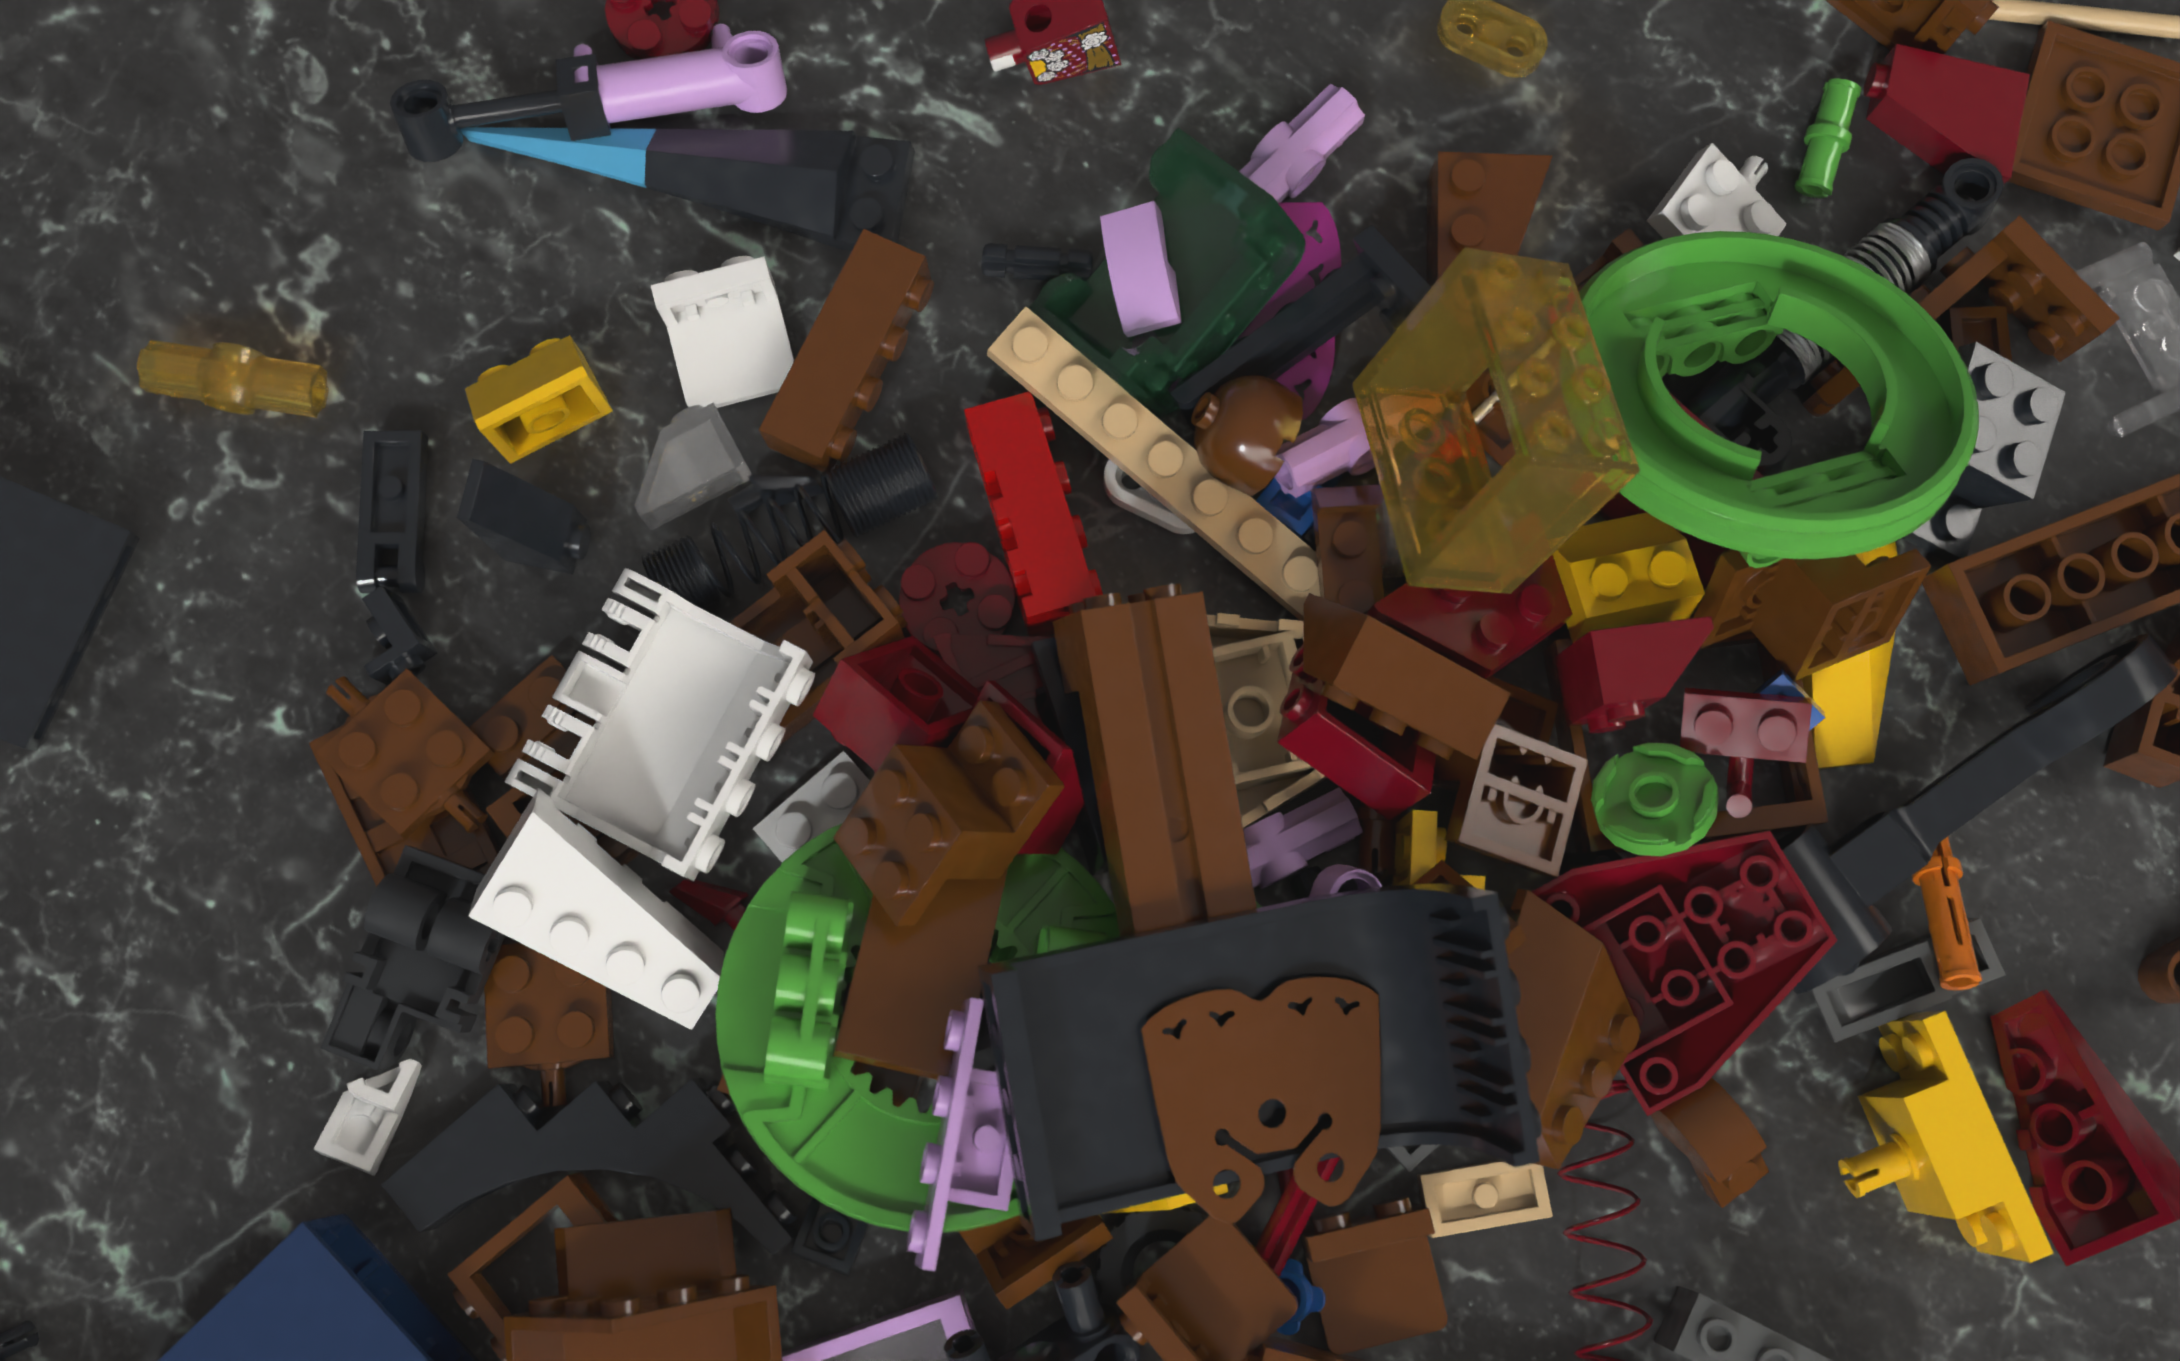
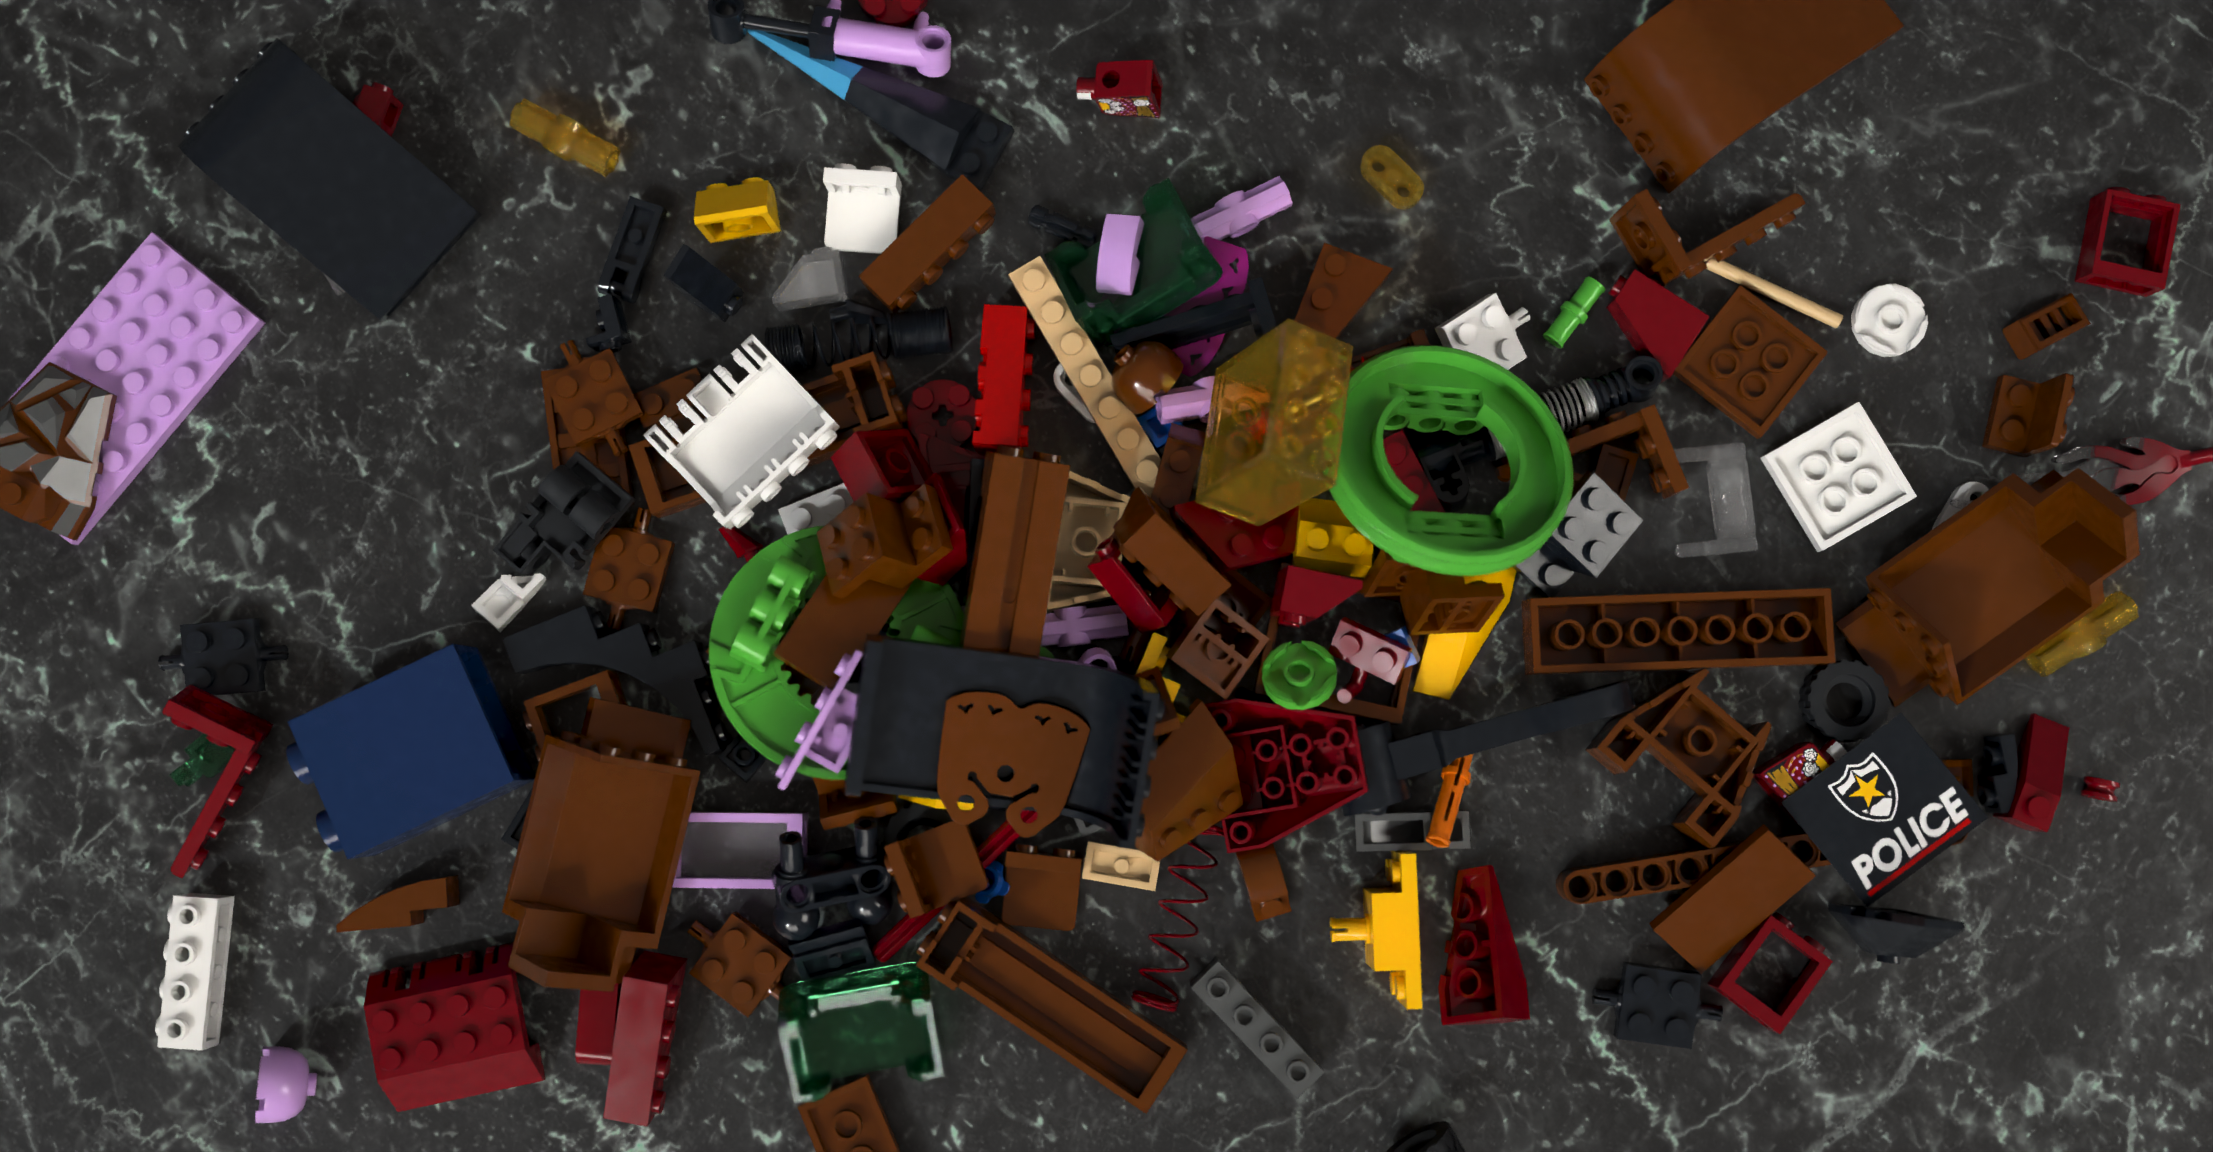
camera: 30 degrees right, 5 degrees up
(595, 916) = (669, 529): white wedge -> none

